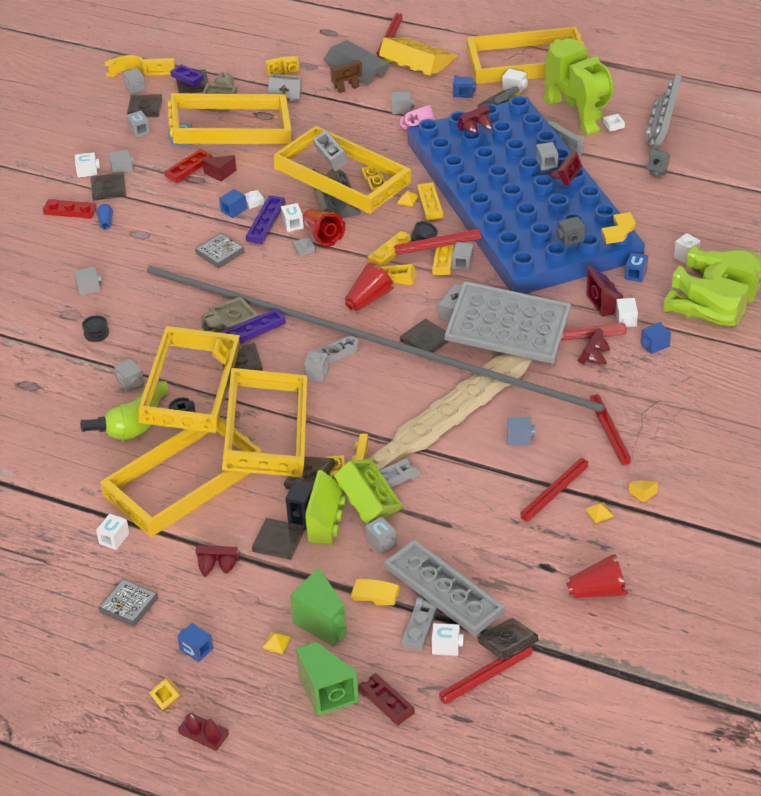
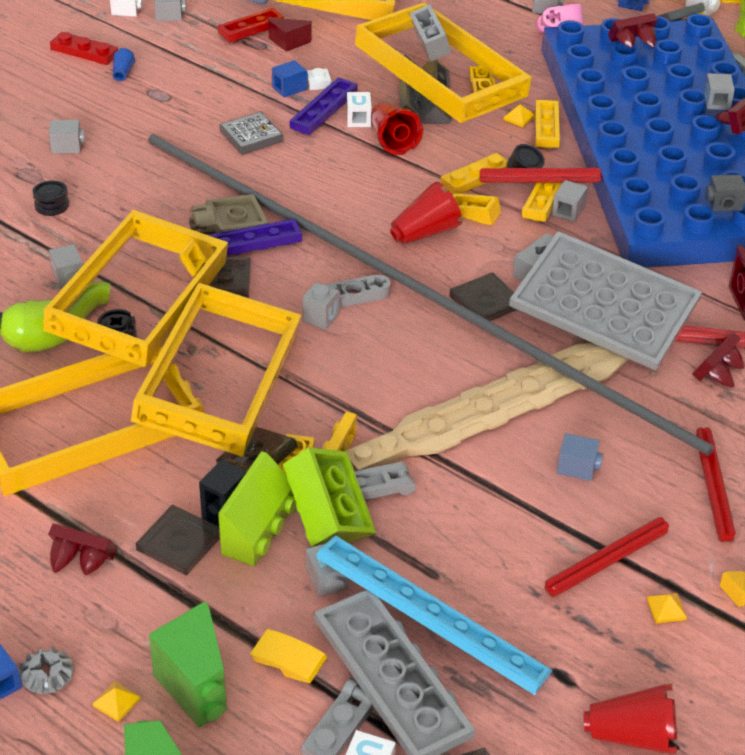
camera: 10 degrees right, 0 degrees up
(108, 186) = (143, 31): clear smoke tile -> none
(222, 641) = (36, 680): none -> light grey gear
(303, 246) = (362, 149): light grey plate -> none
(457, 546) = (435, 614): none -> medium azure tile

